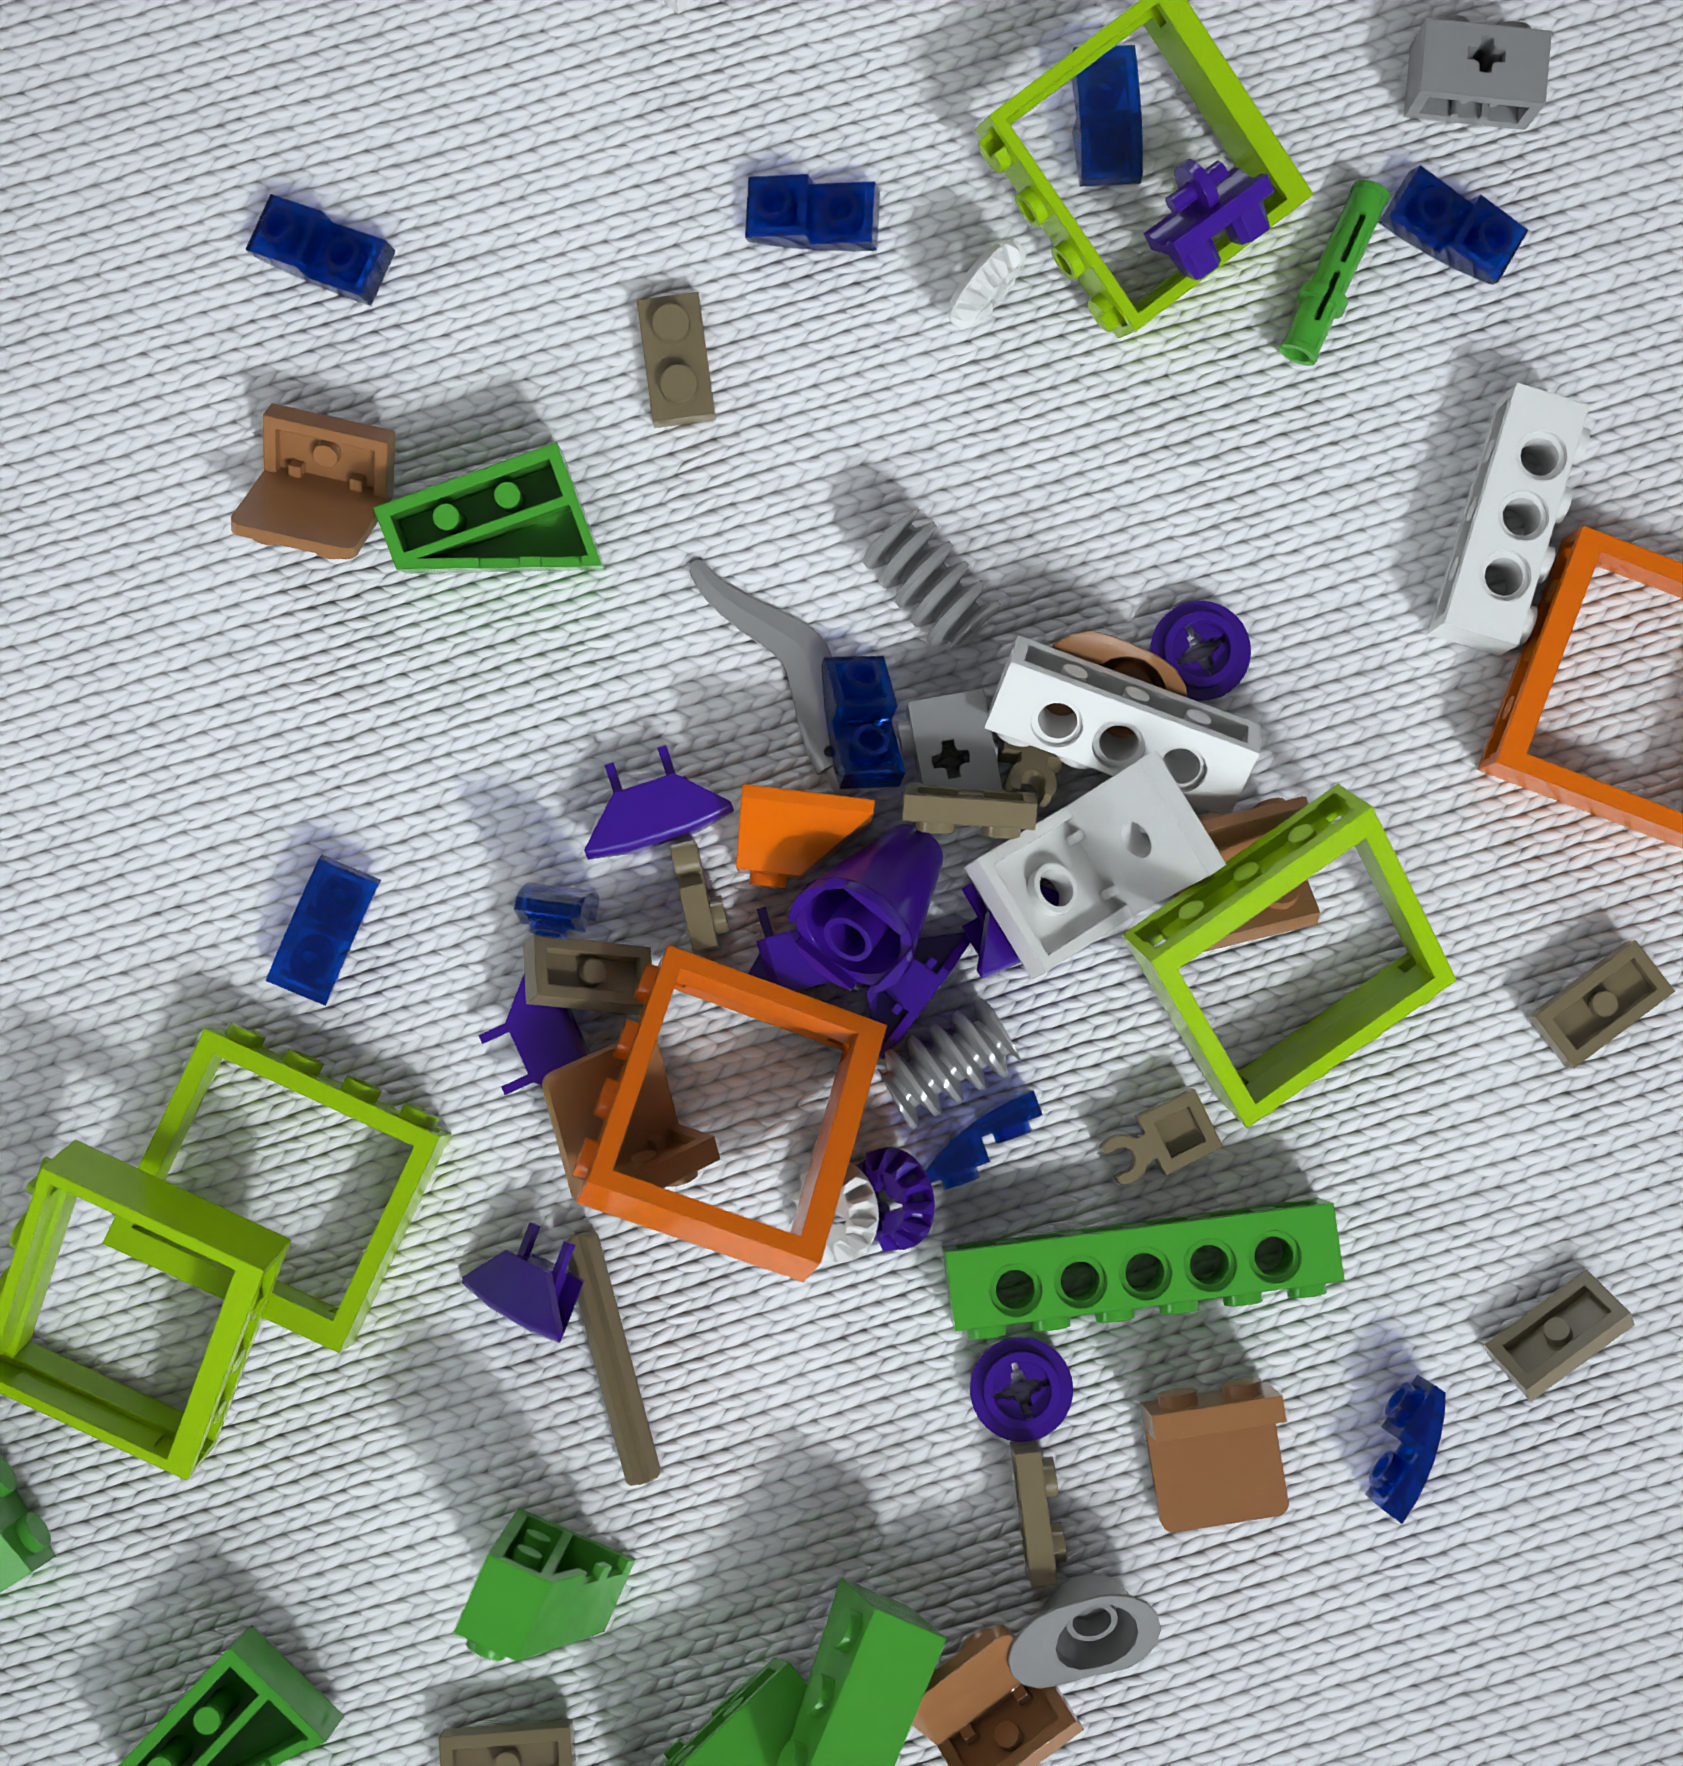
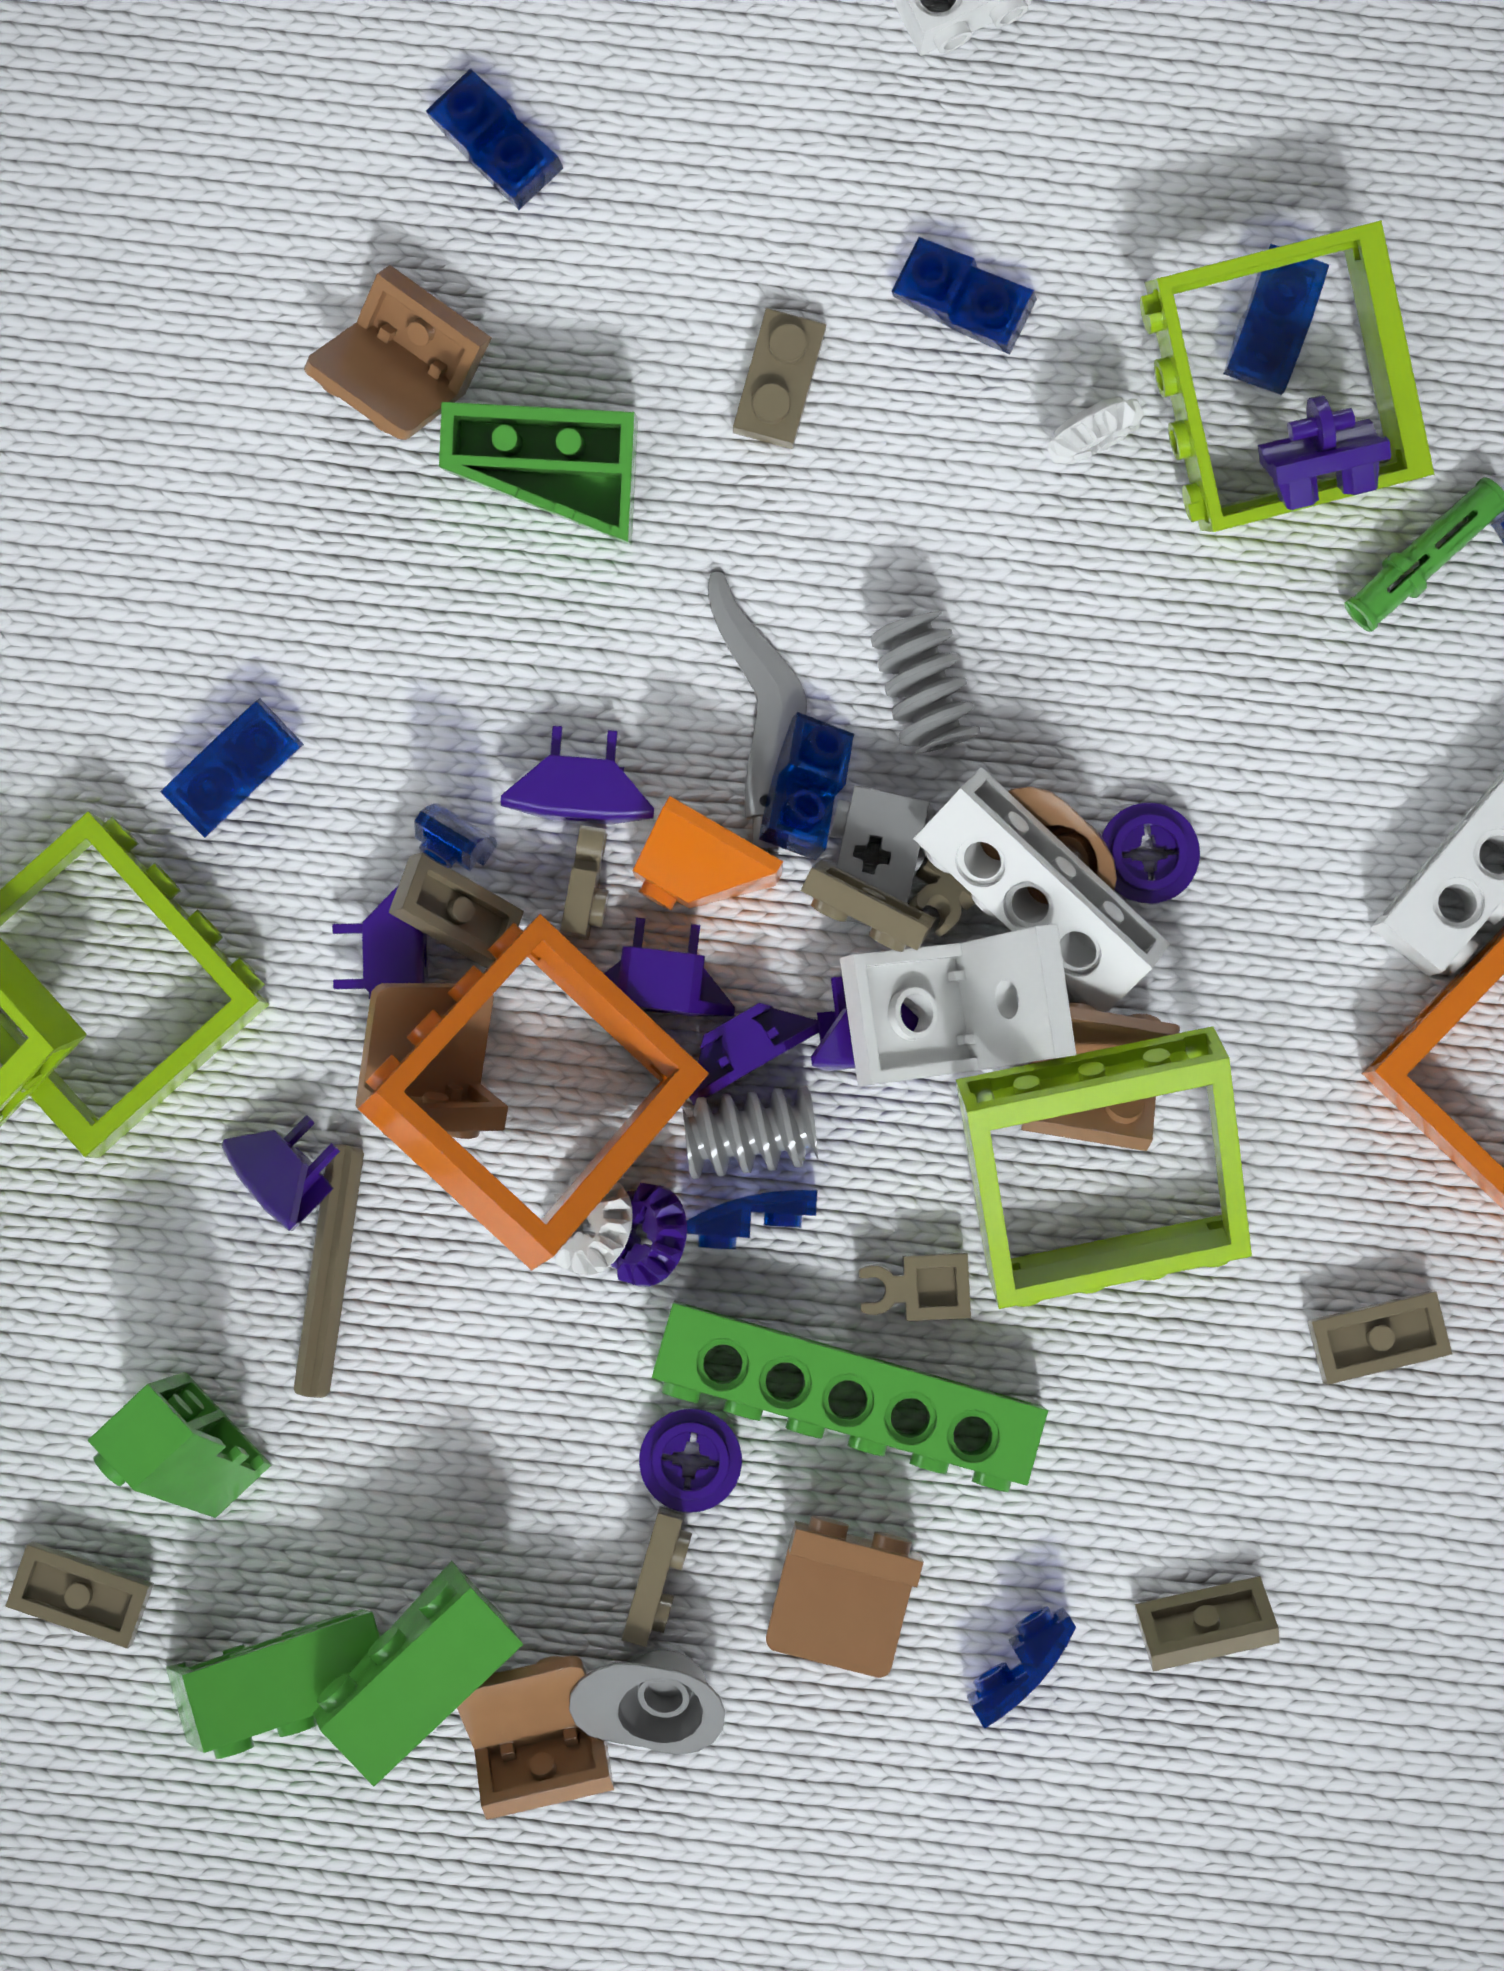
camera: 25 degrees right, 0 degrees up
(869, 910) = (737, 960): dark purple cone -> none

